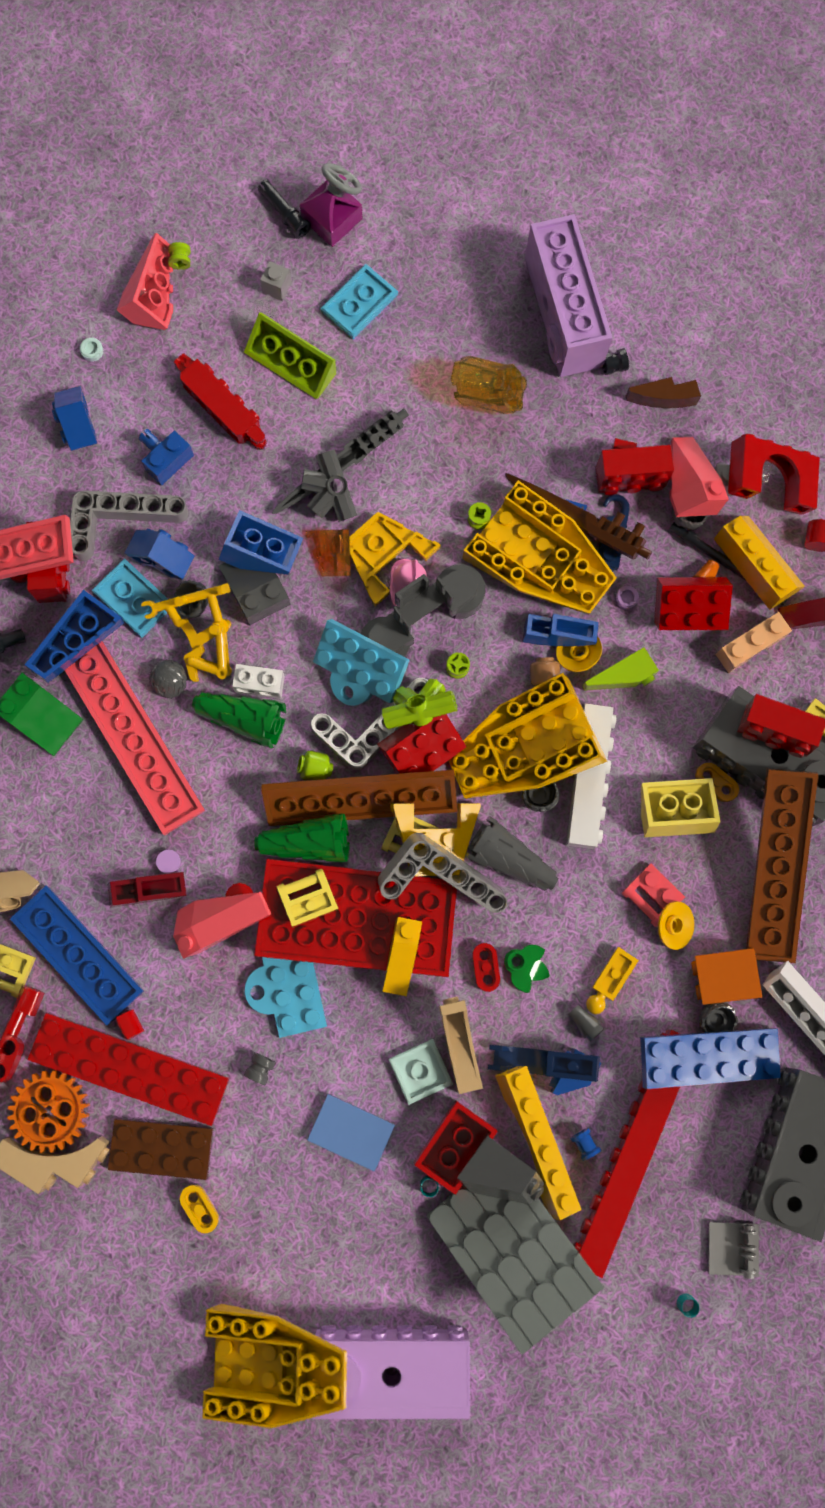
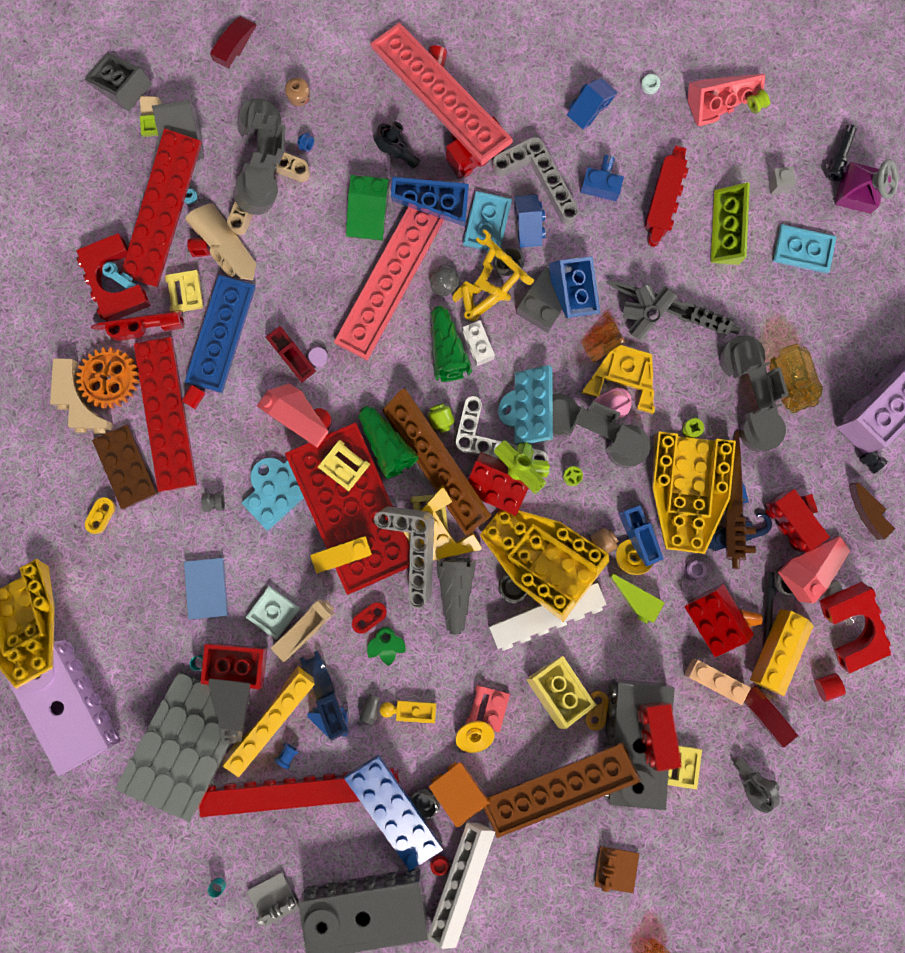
camera: 65 degrees right, 5 degrees up
(521, 443) = (765, 427): none -> dark grey piece
(792, 1041) = (439, 865): none -> red plate

